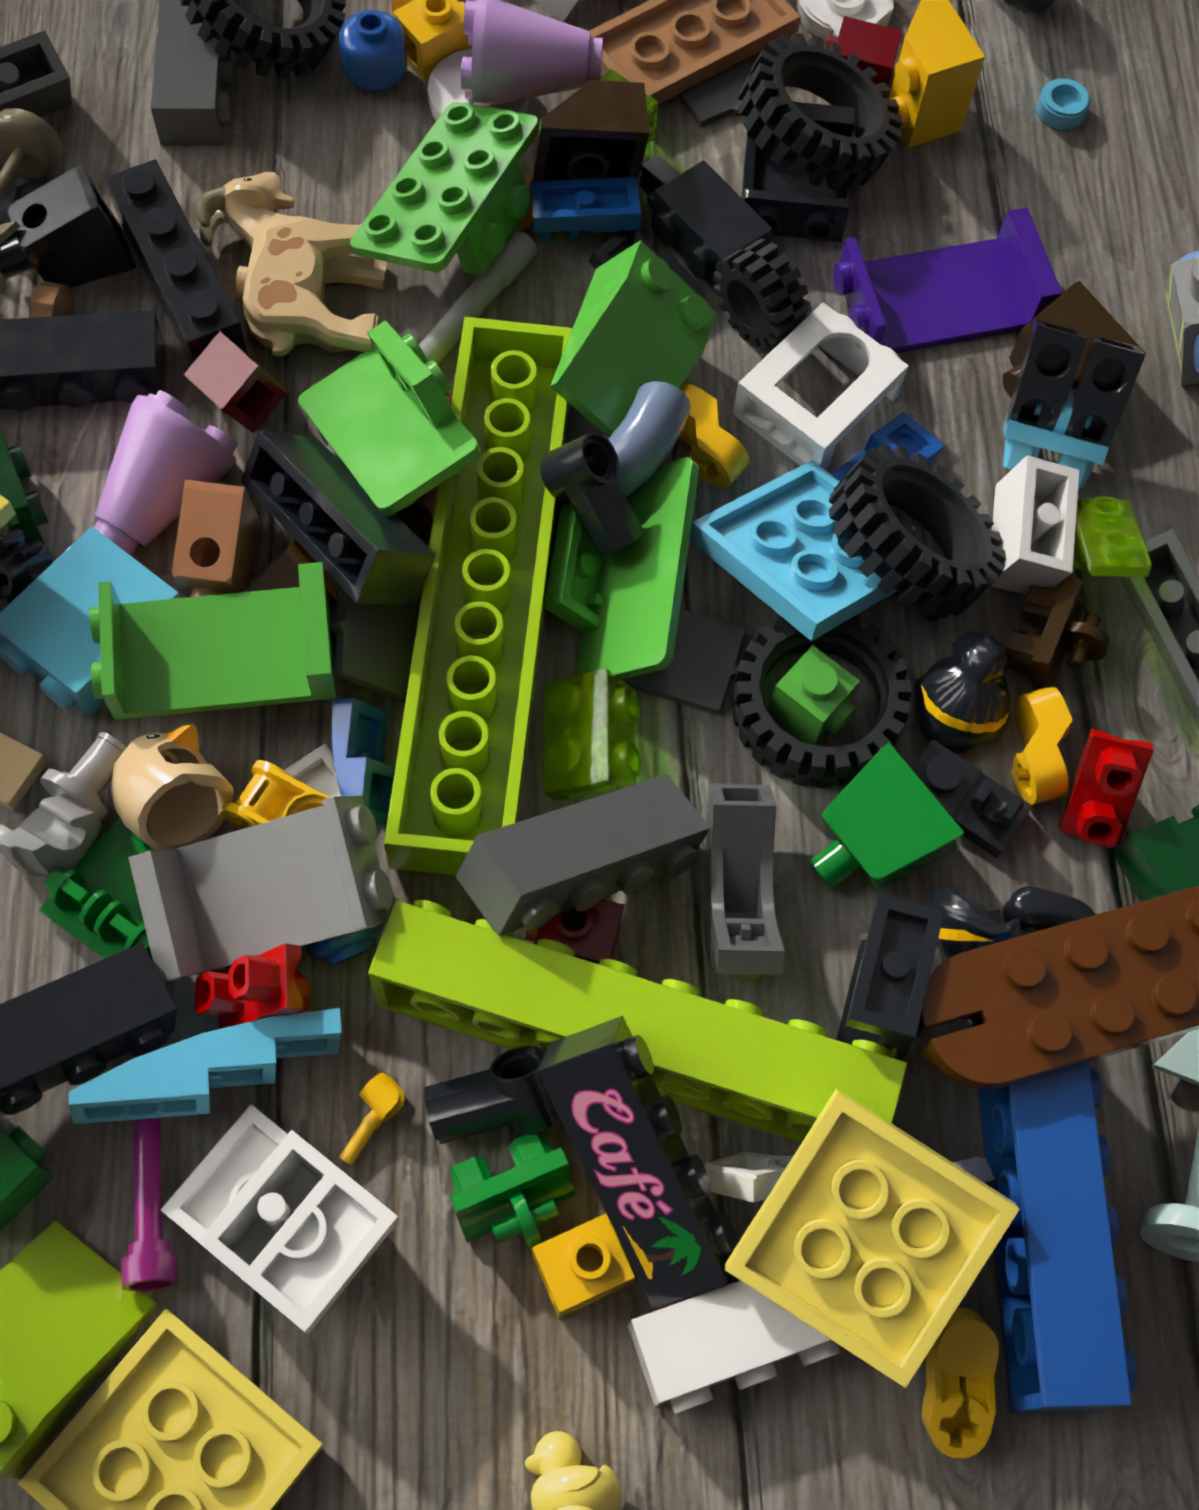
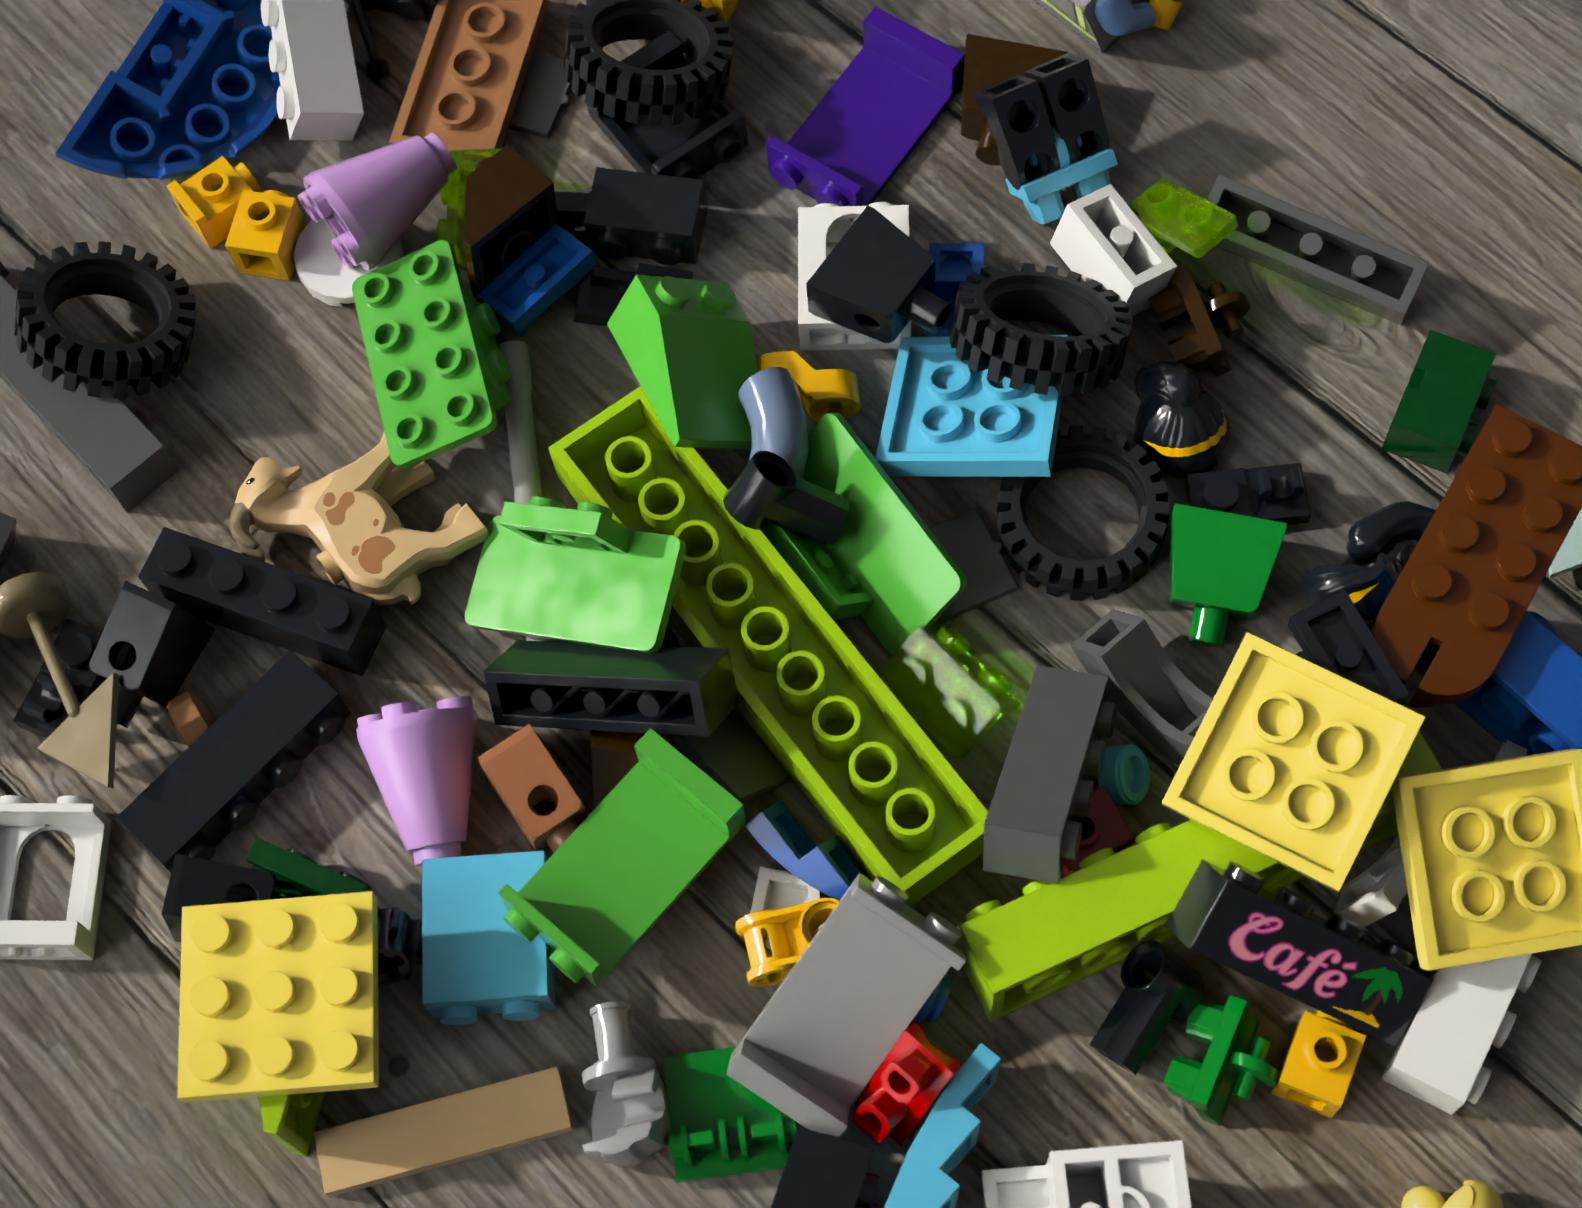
camera: 30 degrees left, 0 degrees up
(169, 790) = (689, 1003): tan piece -> none
(227, 375) = (409, 651): brick -> none
(373, 50) = (235, 289): blue head -> none
(385, 1101) = (1065, 1080): yellow hand -> none
(655, 914) = (1125, 774): none -> medium azure tile
(761, 293) = (744, 239): black tyre -> none
(766, 1004) = (1293, 761): none -> light yellow plate
(814, 698) = (1082, 516): bright green brick -> none
(821, 394) = (877, 282): none -> black torso
(1040, 767) = (1275, 427): yellow piece -> none
(1105, 788) = (1342, 407): red hips -> none

